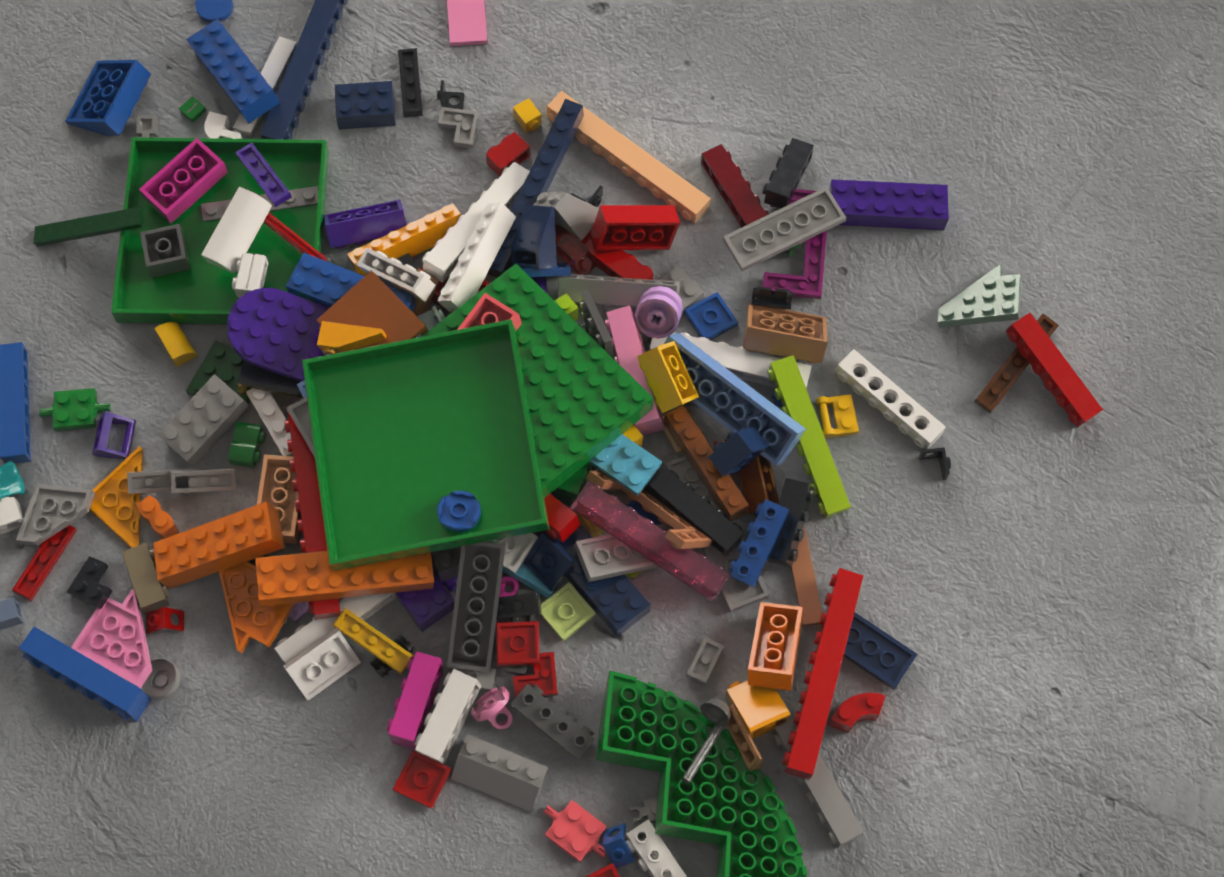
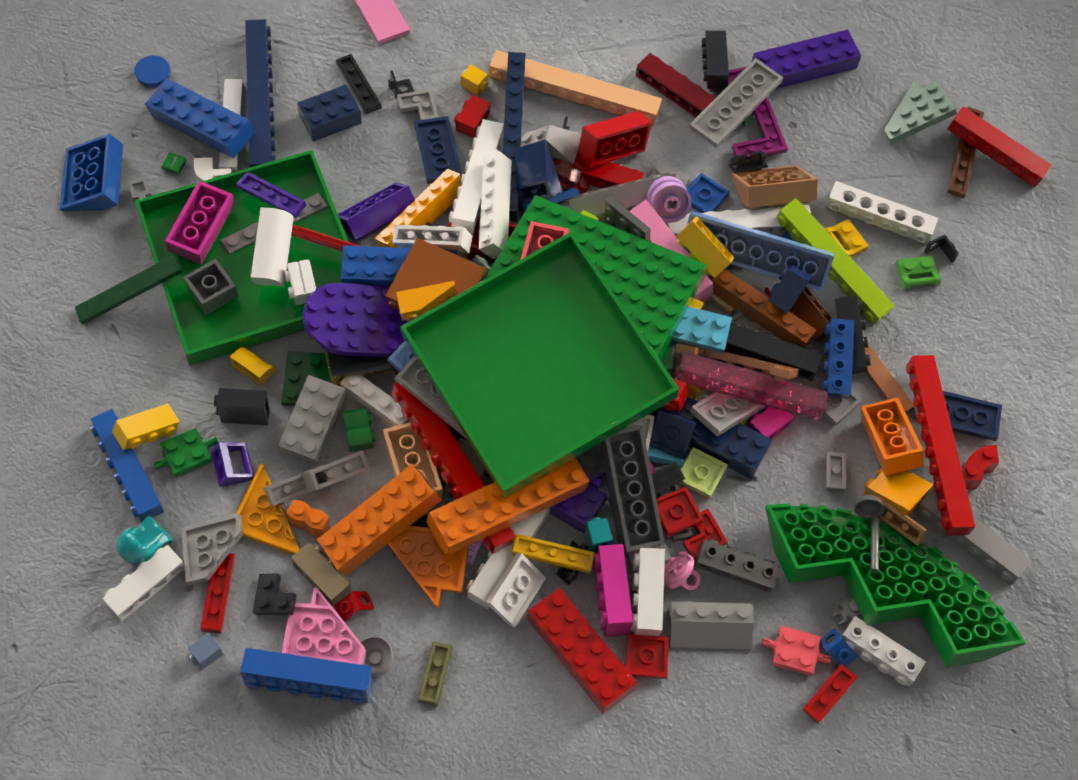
camera: 25 degrees left, 5 degrees down
(44, 372) = (145, 427): none -> yellow brick
(144, 383) = (242, 406): none -> black brick
(211, 718) = (435, 673): none -> olive tile
(359, 749) = (581, 650): none -> red brick
(426, 638) = (597, 534): none -> teal brick
(457, 176) = (436, 147): none -> dark blue plate
(459, 511) = (595, 408): blue tile -> none
(660, 586) = (771, 422): none -> dark pink brick
(900, 472) = (917, 267): none -> bright green plate

